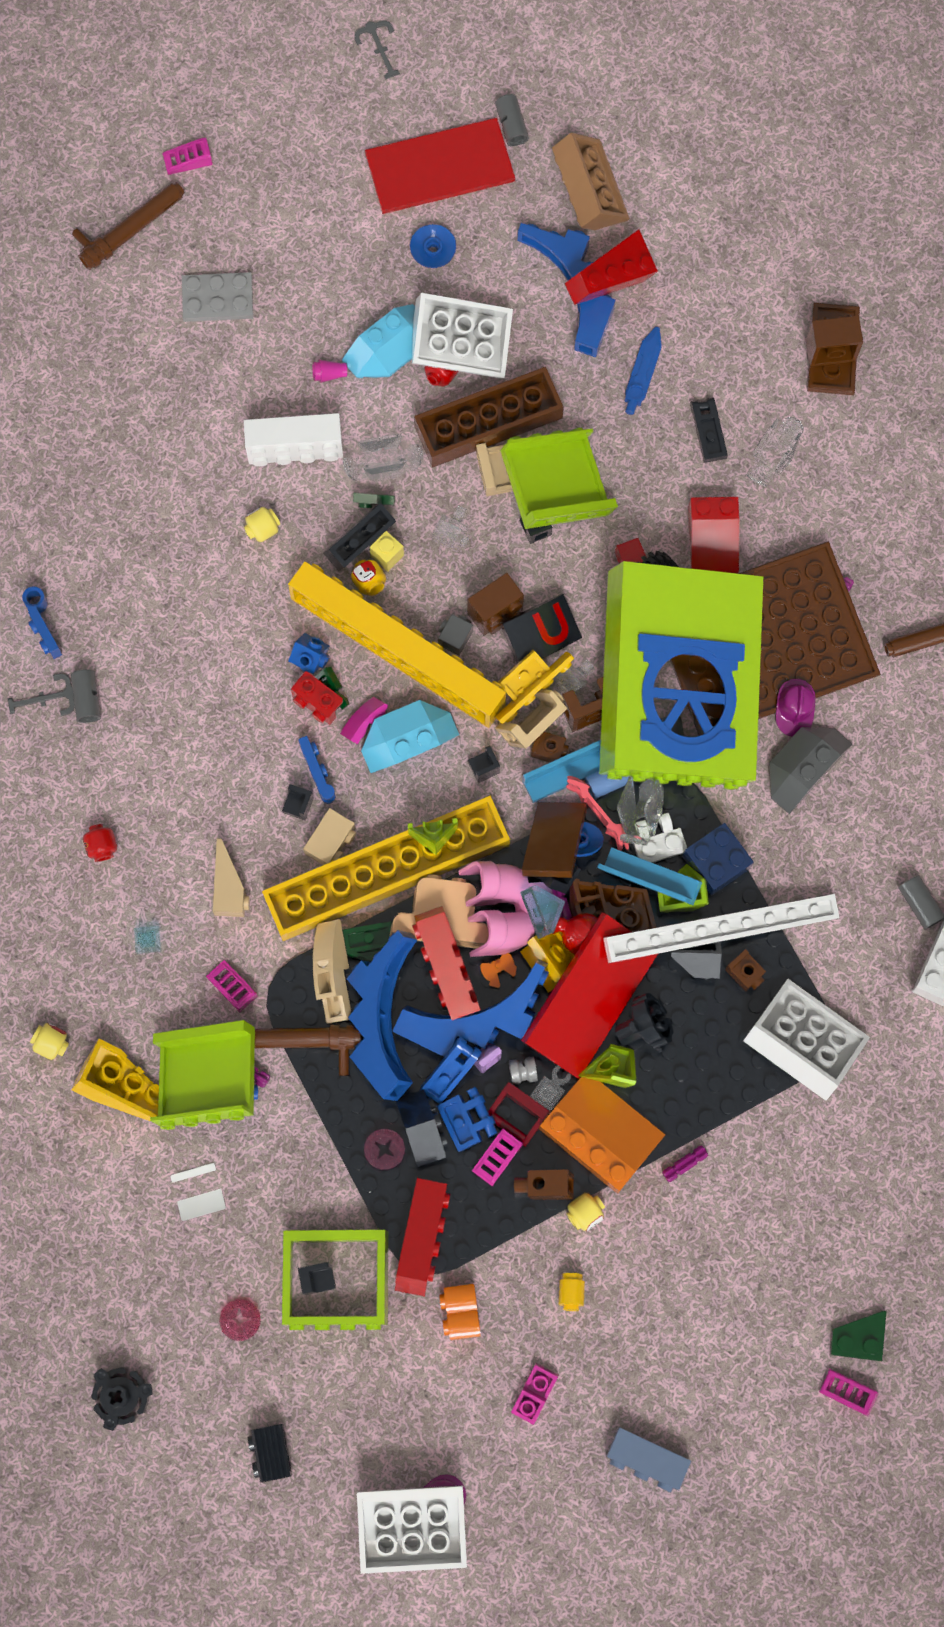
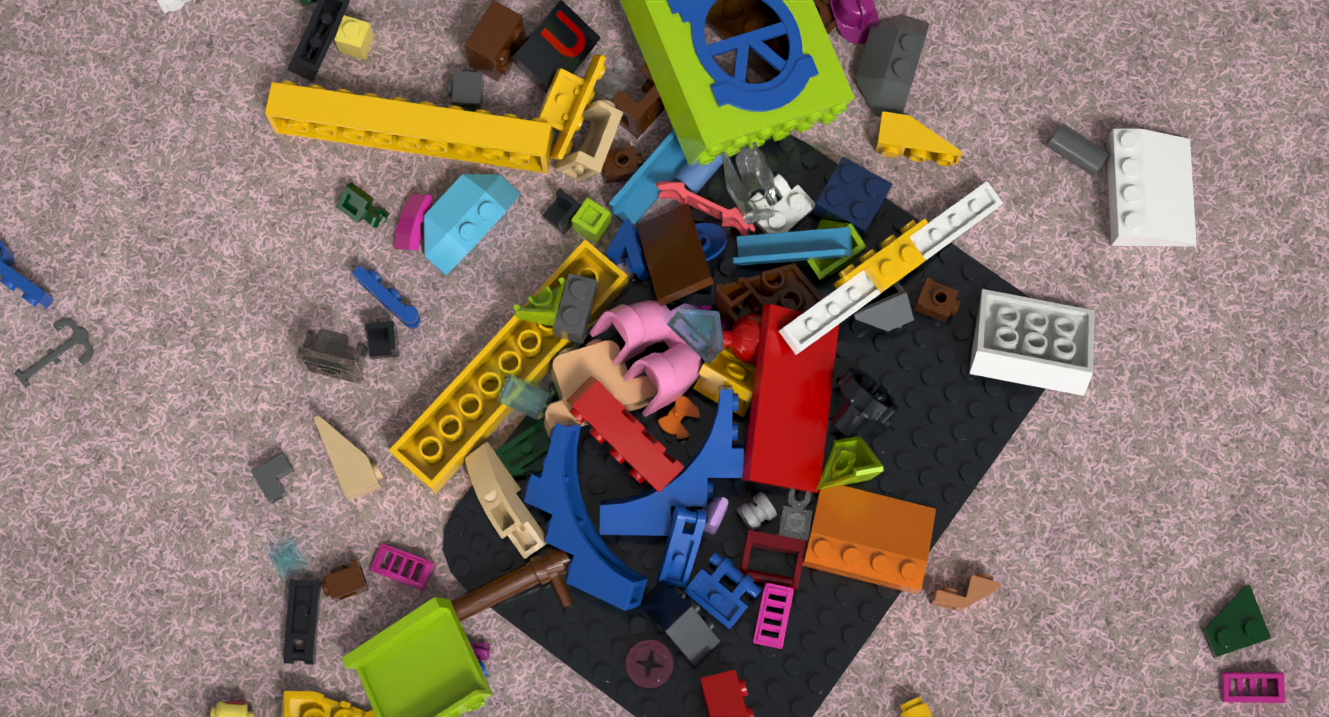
camera: 25 degrees left, 0 degrees up
(85, 697) = (99, 331): dark grey pin -> none
(100, 843) = (187, 480): red head -> none
(136, 991) = (302, 621): none -> black plate
(162, 868) = (269, 475): none -> dark grey piece
(182, 976) = (345, 581): none -> reddish brown brick
(253, 797) = (330, 356): none -> clear smoke panel
(261, 524) = (207, 68): light yellow head -> none
(309, 653) = (322, 179): blue brick -> none
(317, 697) = (351, 221): red bracket -> none
(330, 838) = (435, 361): tan brick -> none
(368, 577) = (347, 72): yellow head -> none
(386, 898) = (526, 396): none -> clear light blue slope
(456, 847) = (575, 308): none -> dark grey brick
(504, 782) = (591, 220): none -> lime panel
(521, 818) = (628, 248): none -> blue slope
(558, 1184) = (852, 615): reddish brown torso -> none
(585, 1211) = (892, 629): light yellow head -> none
(666, 1213) = (976, 588): none -> nougat slope
(685, 1163) = (970, 529): magenta axle -> none
(722, 924) = (891, 263): none -> yellow bracket
(788, 830) = (908, 137): none -> yellow slope

